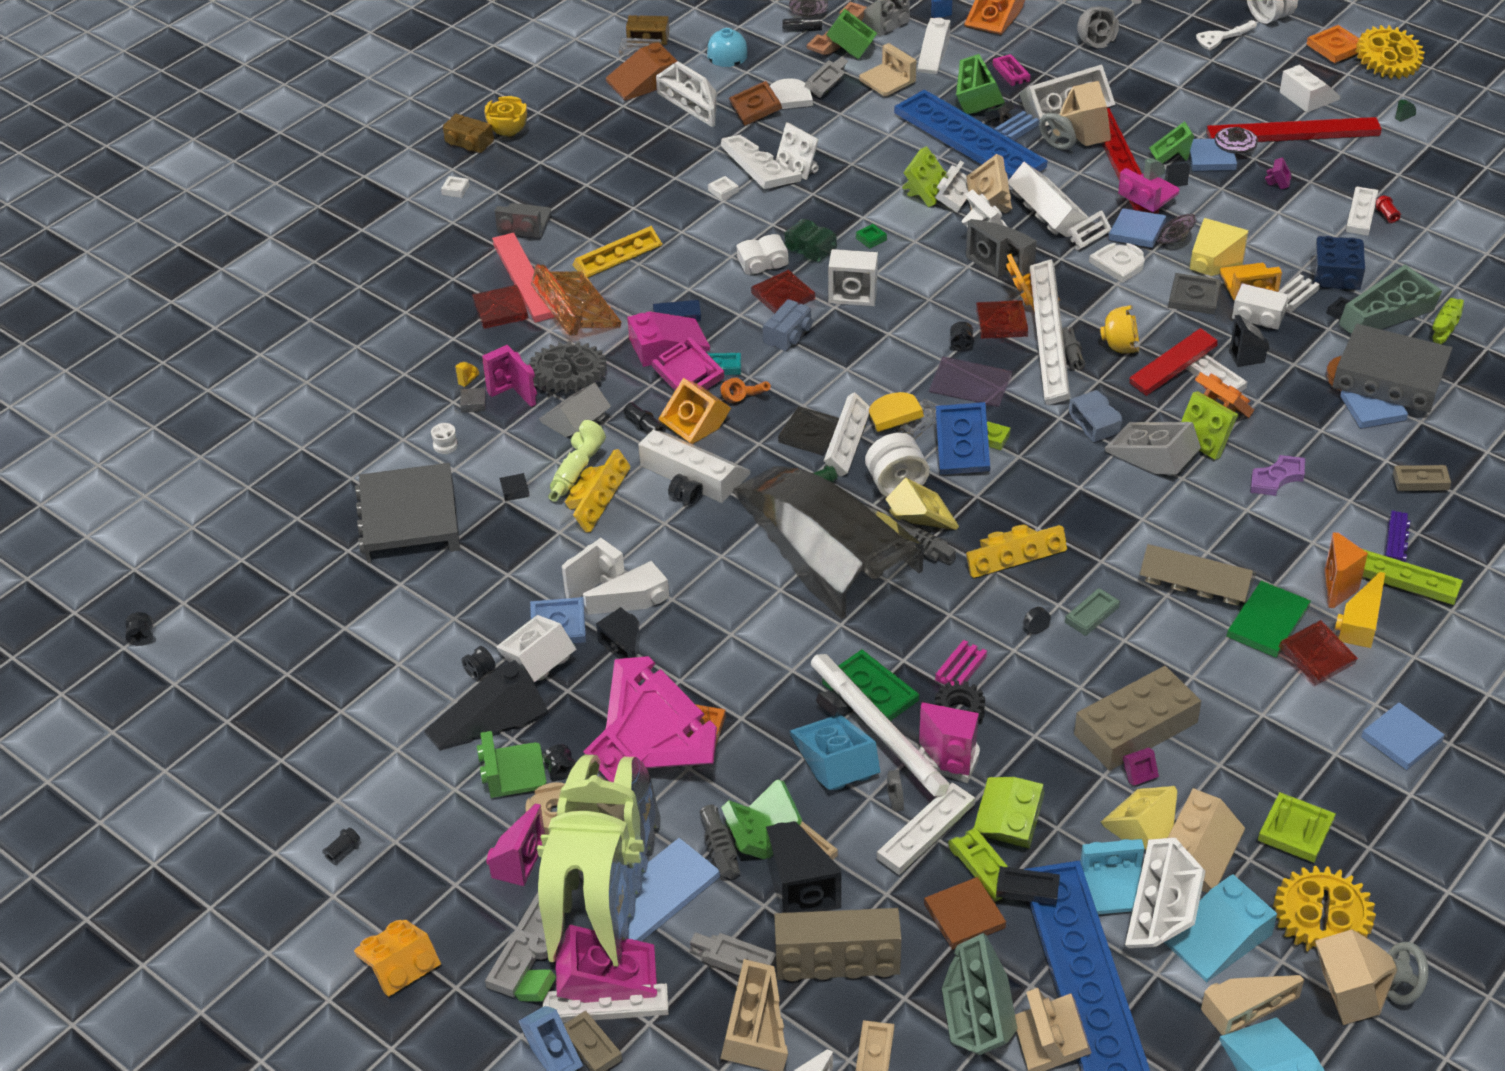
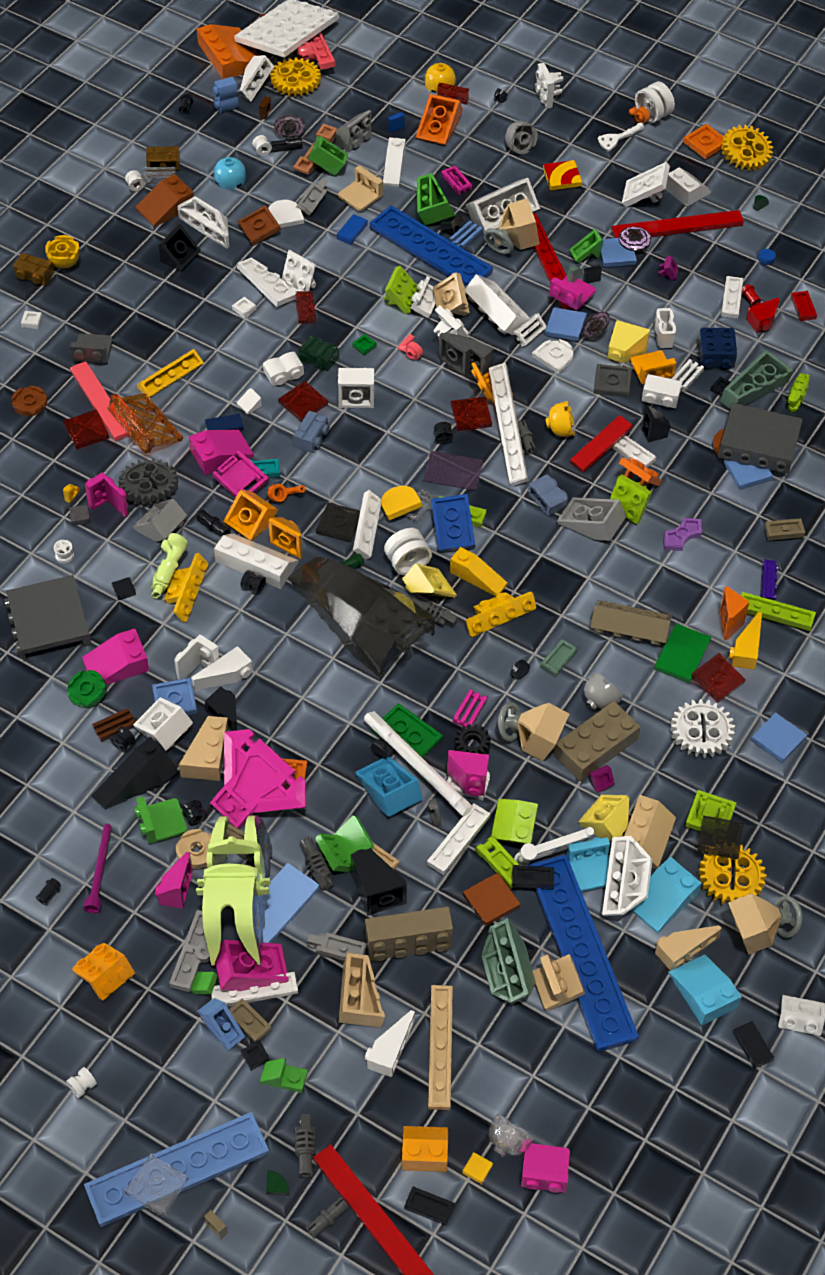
camera: 10 degrees left, 10 degrees up
(399, 865) = (93, 903): none -> magenta piece
(435, 272) = (29, 401): none -> dark orange tile
(442, 599) = (86, 688): none -> green tile
(469, 644) = (113, 722): none -> reddish brown tile
(489, 567) = (118, 657): none -> dark pink slope
(586, 689) = (206, 752): none -> tan wedge
(608, 45) = (134, 180): none -> white wheel
(649, 120) = (178, 248): none -> black slope
(714, 288) = (249, 401): none -> white slope
(735, 438) = (285, 536): none -> light orange slope
(772, 17) = (262, 145): none -> white wheel
(800, 190) = (305, 307): none -> clear red plate
(872, 114) = (352, 229): none -> blue tile
(932, 242) = (411, 348): none -> coral plate
(986, 497) = (475, 571): none -> yellow slope
(1049, 690) = (537, 727): none -> tan piece
(1053, 848) = (530, 852): none -> white piece
(1146, 654) = (600, 692): none -> light grey cylinder
(1147, 71) = (562, 175): none -> yellow tile
(1253, 12) = (641, 114): none -> orange plate
(1256, 82) = (646, 185): none -> white plate
(1269, 236) = (665, 327): none -> white brick
(1270, 713) = (685, 728): none -> white gear
(1309, 856) = (720, 837): none -> clear smoke tile
(1402, 231) = (763, 315): none -> red slope
(1410, 169) = (766, 256): none -> blue tile
(1458, 225) = (803, 305): none -> red tile

